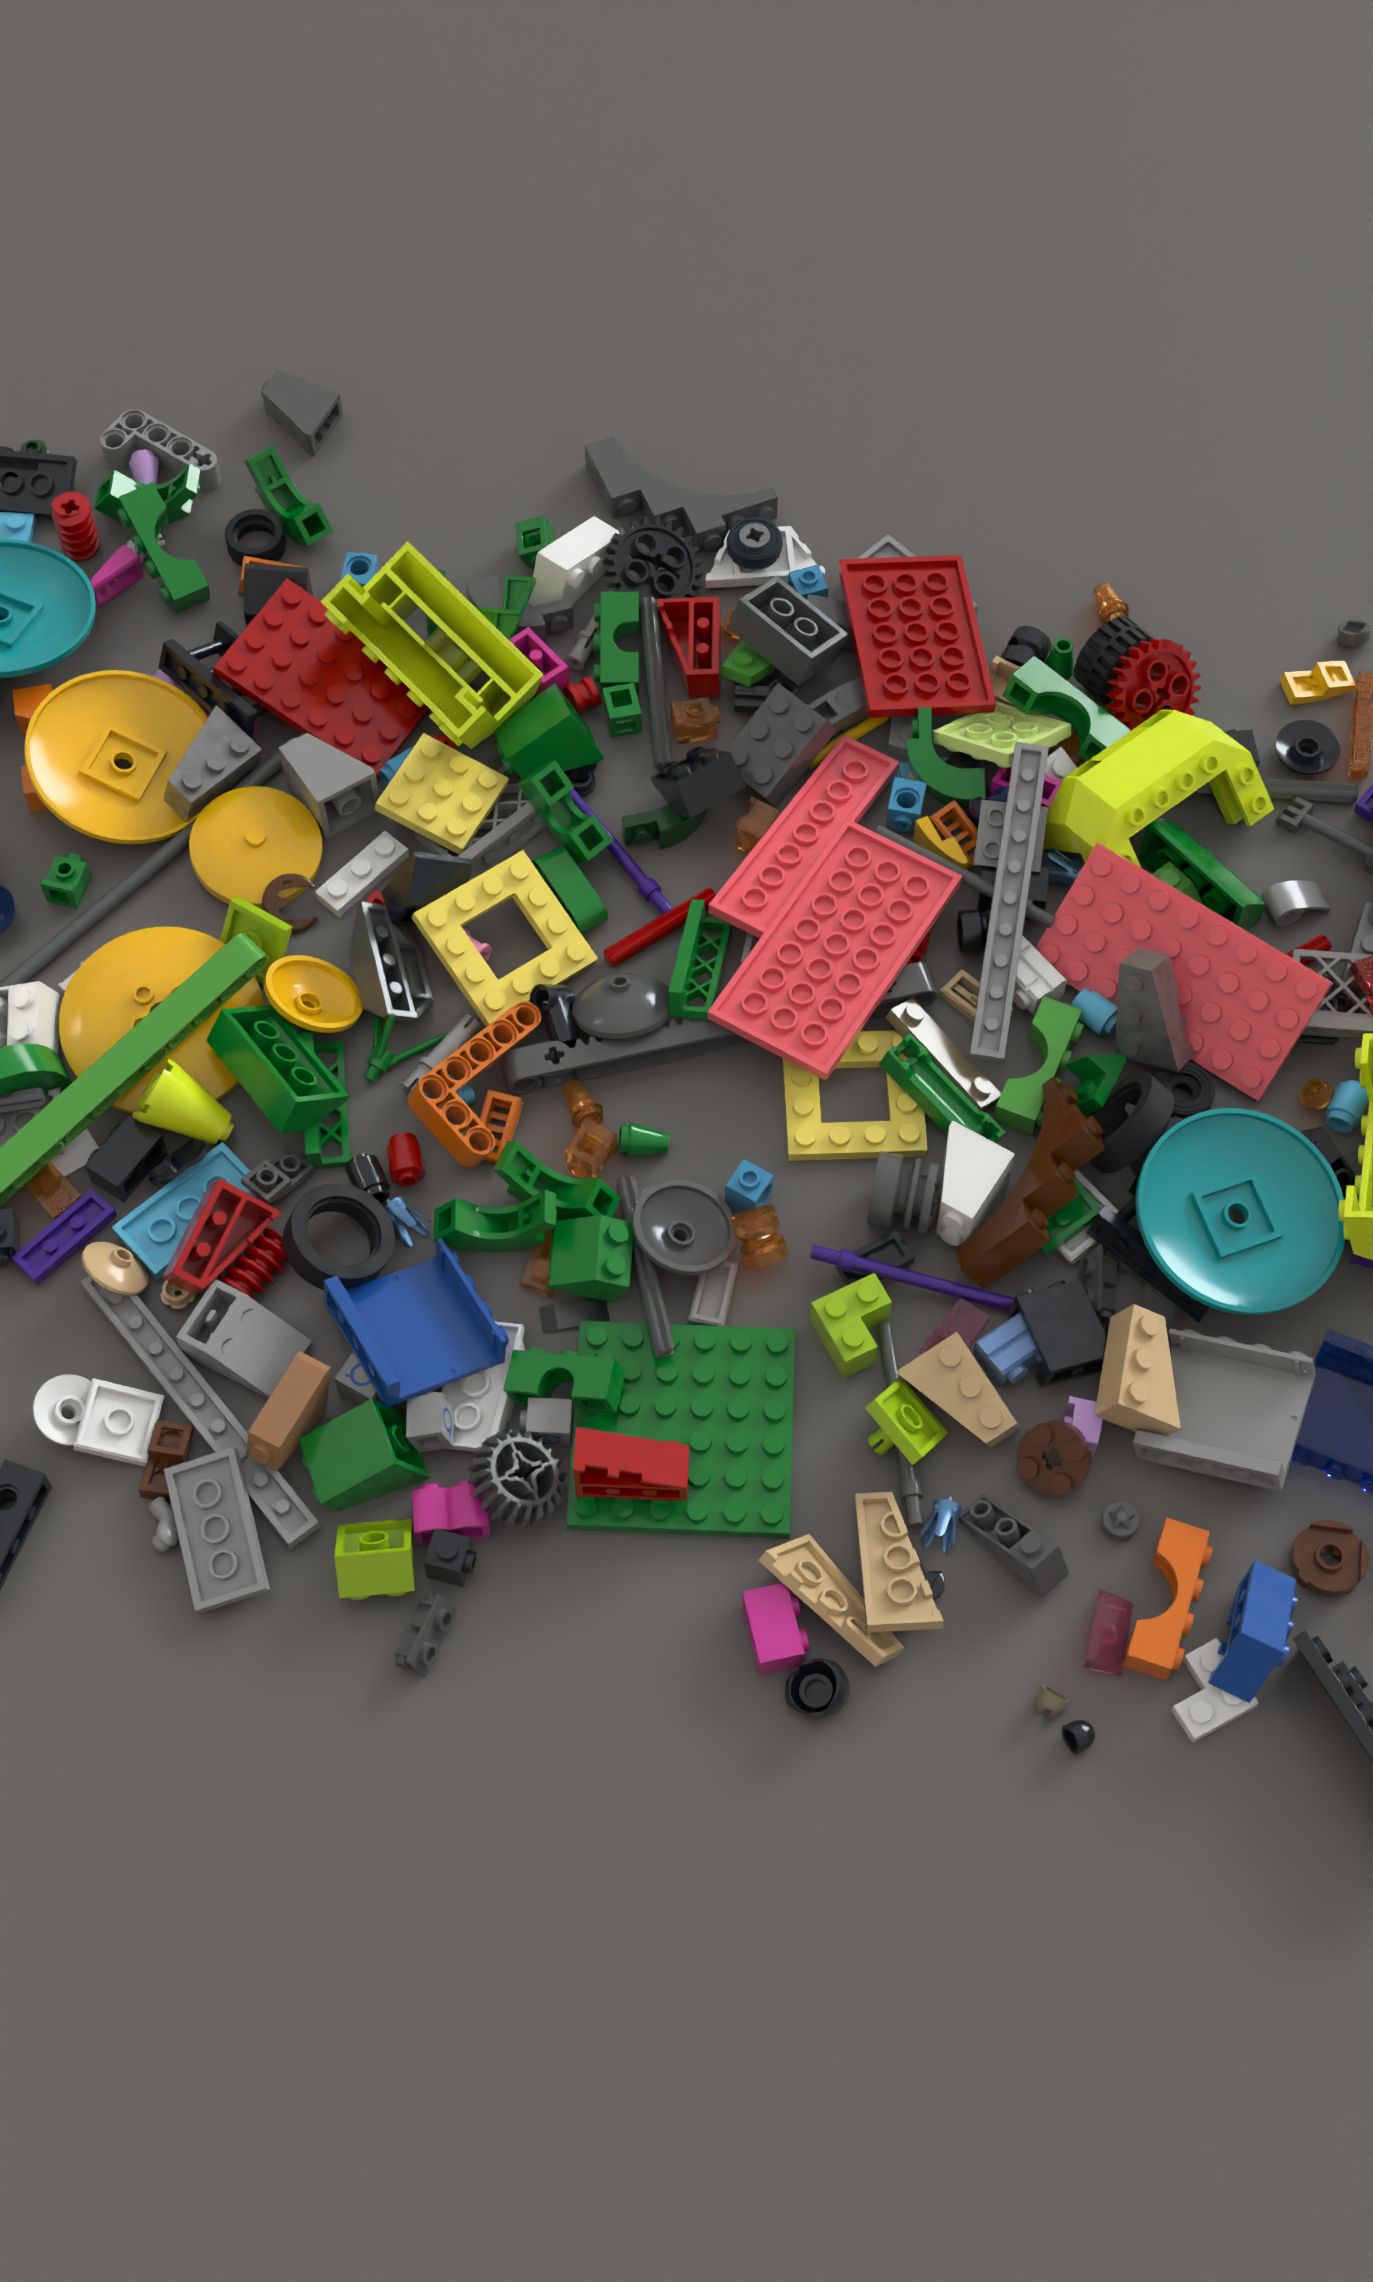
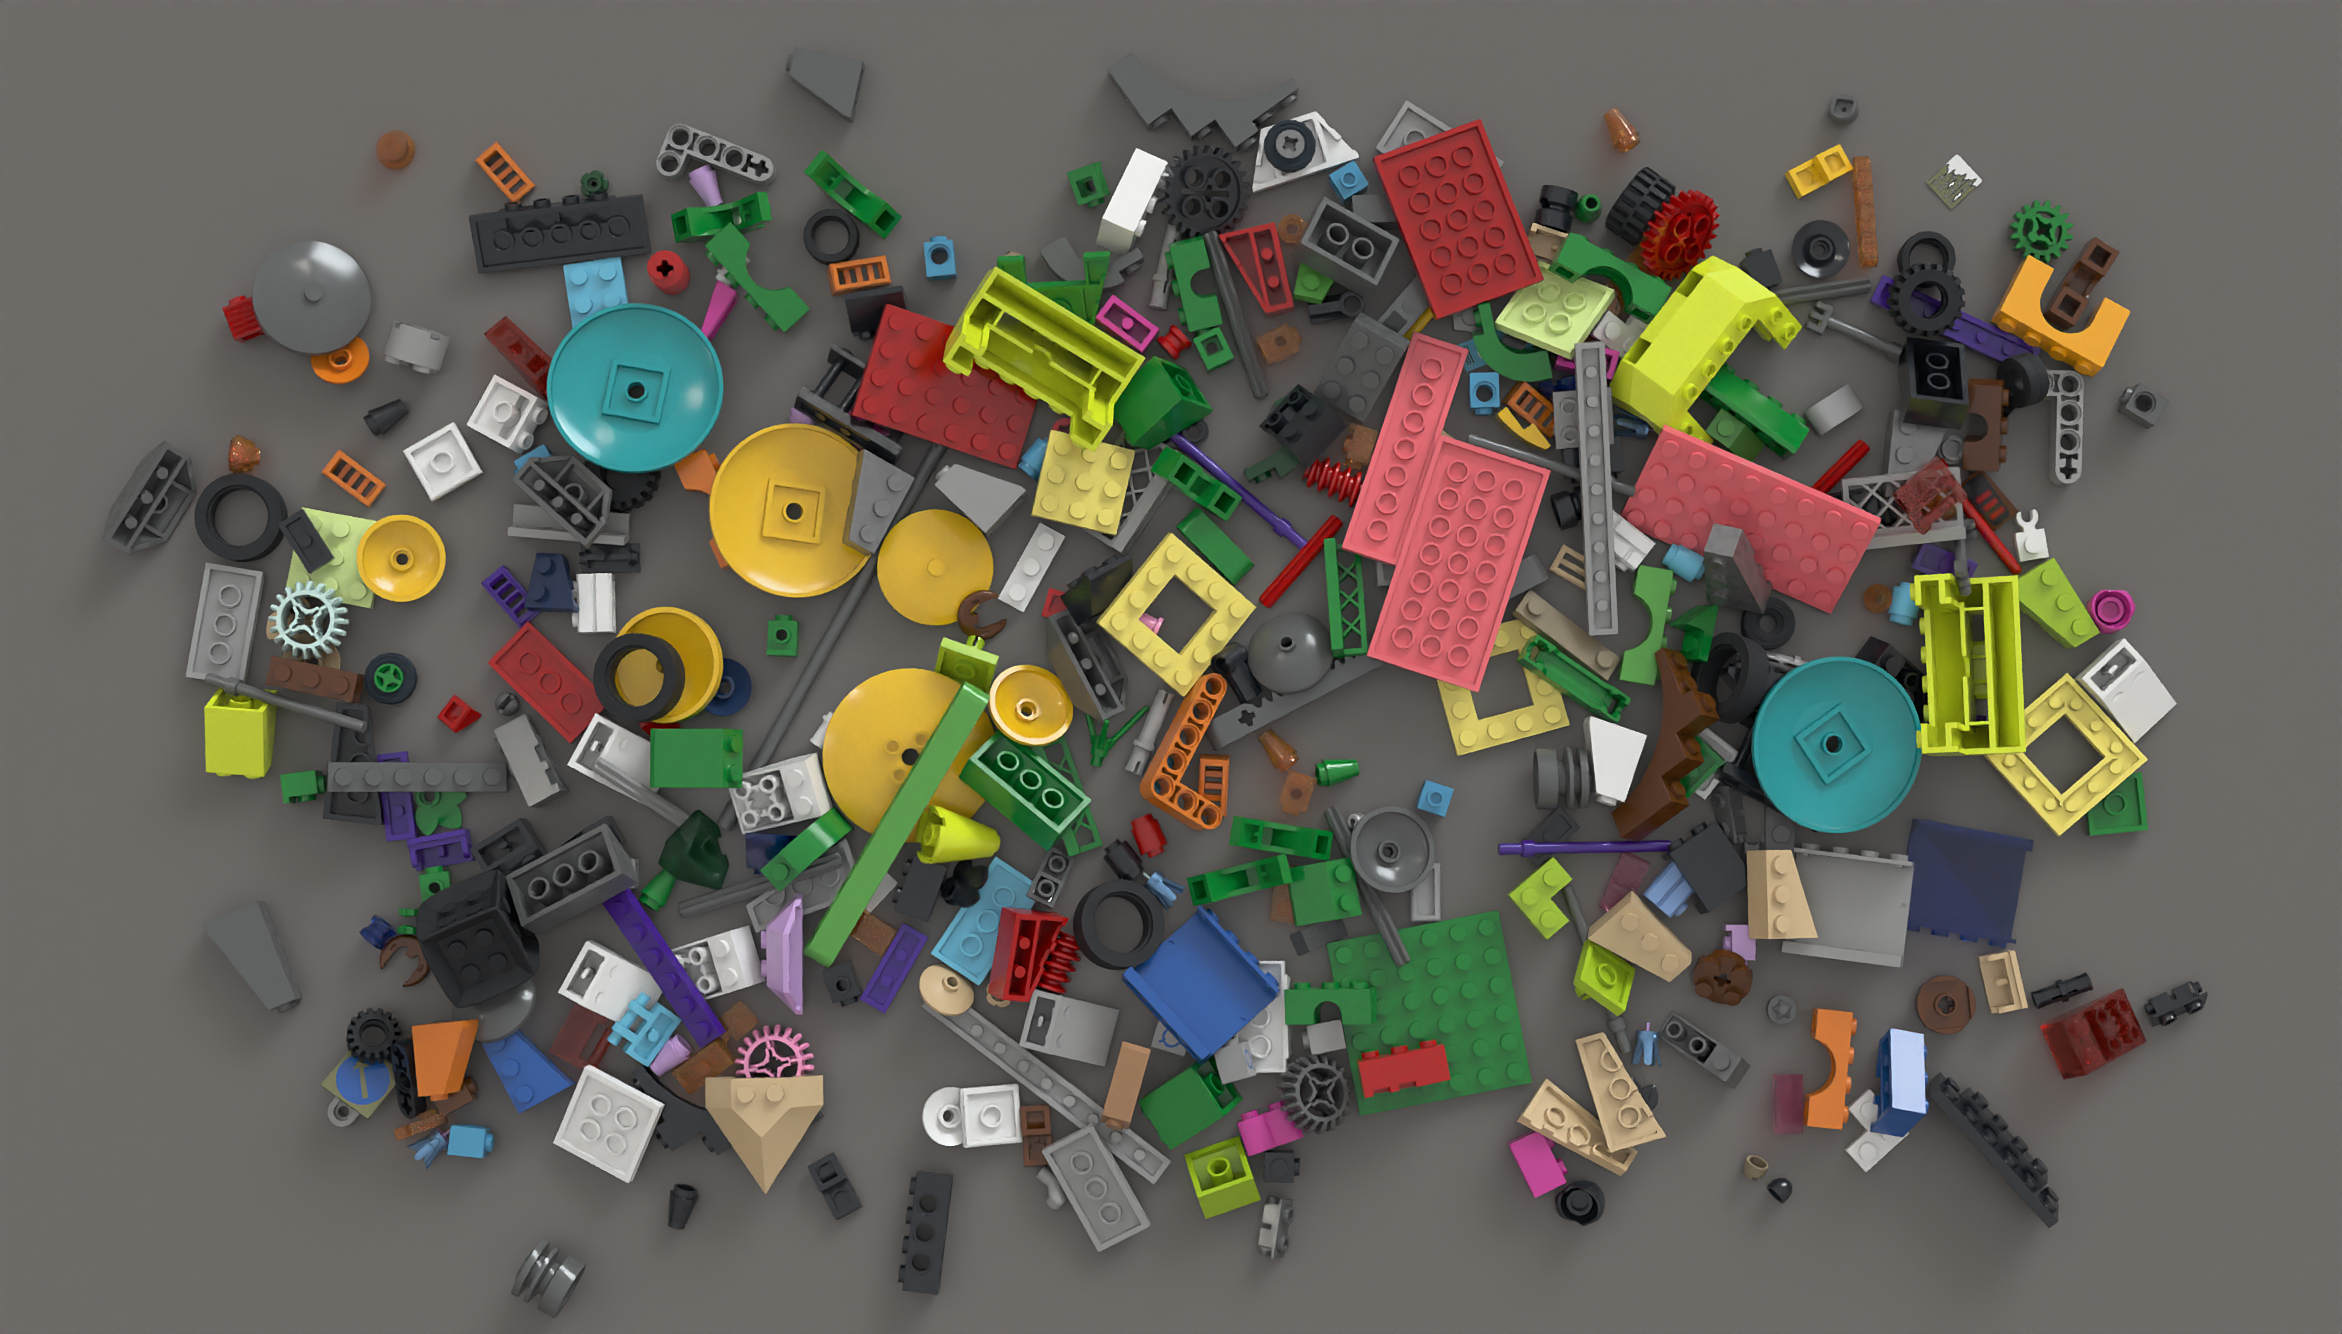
camera: 10 degrees left, 25 degrees up
(714, 850) = (1334, 480): none -> red piece
(760, 1238) = (1454, 843): clear orange wheel -> none

